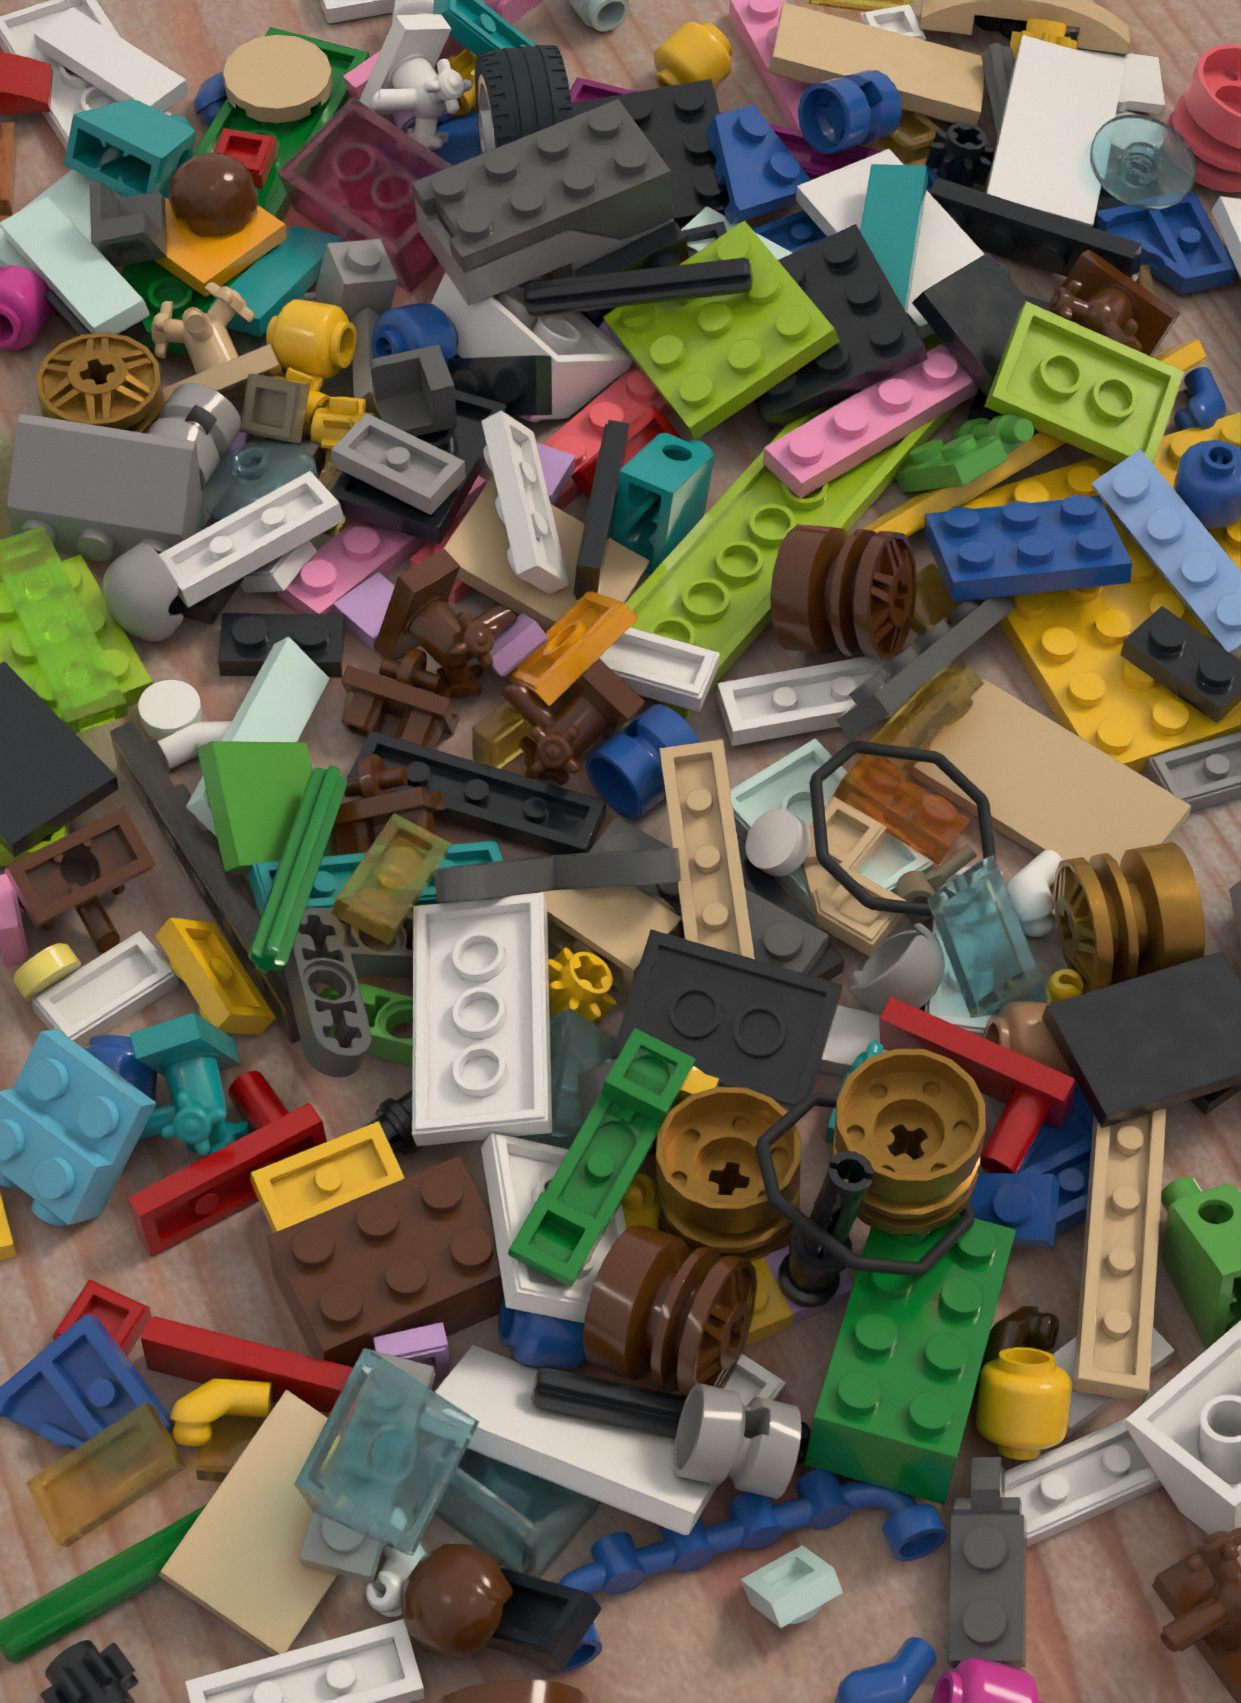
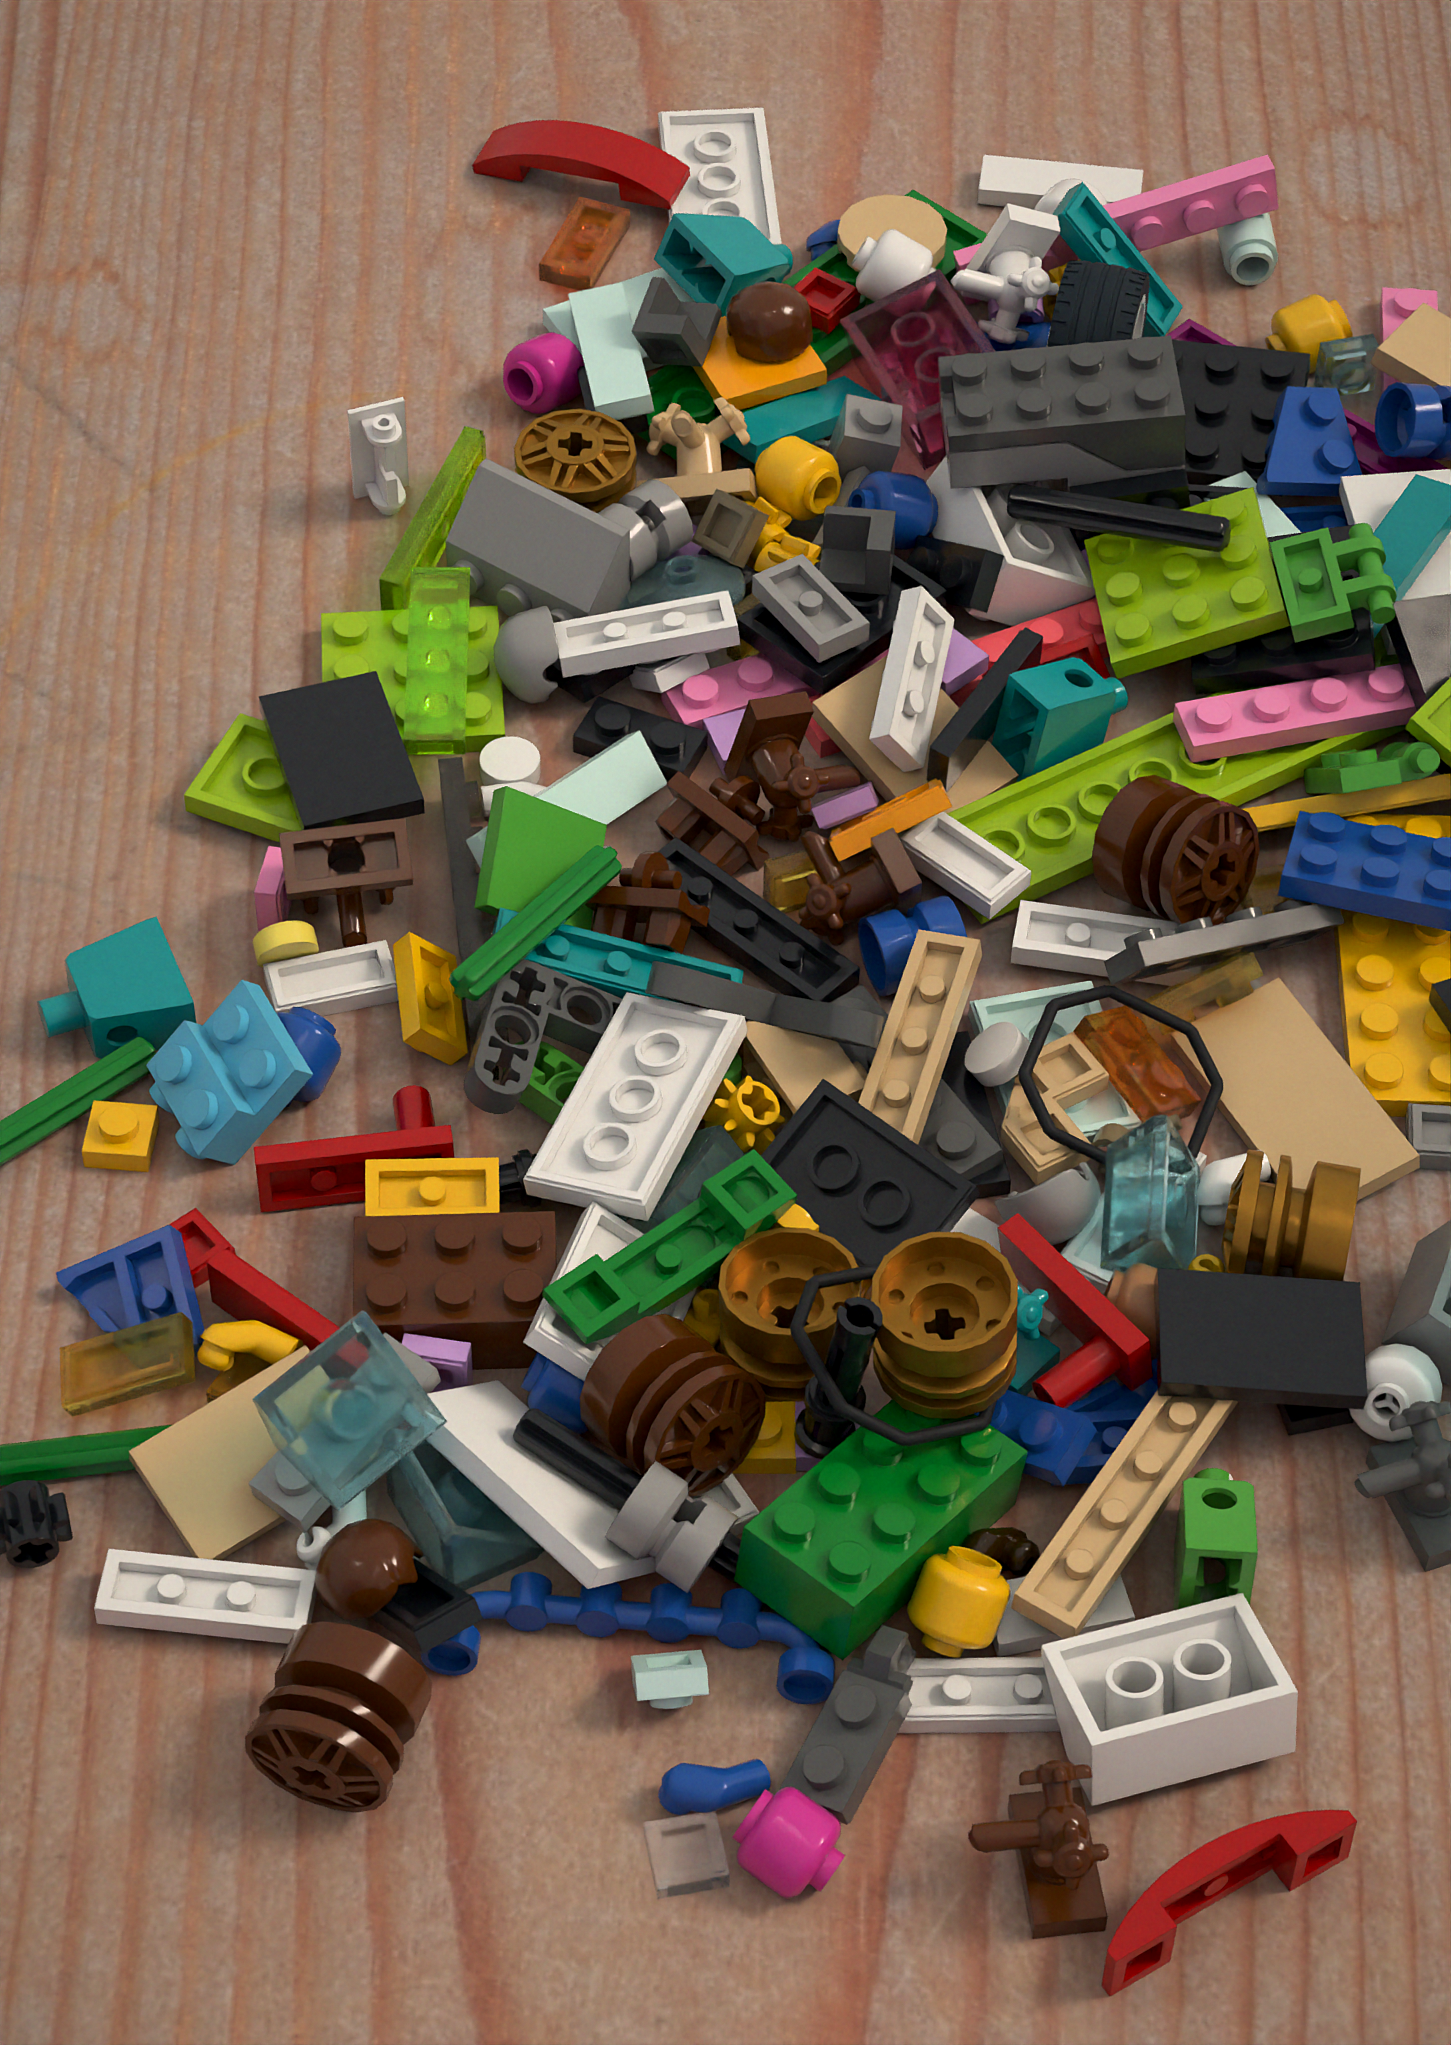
camera: 25 degrees right, 5 degrees down
(109, 61) = (745, 179): white tile -> none
(190, 1057) = (366, 1056): teal piece -> none
(300, 106) = (890, 264): none -> white head
(390, 878) = (615, 960): clear yellow plate -> none
(741, 79) = (1347, 364): none -> clear light blue plate
(851, 299) = (1313, 586): none -> bright green plate

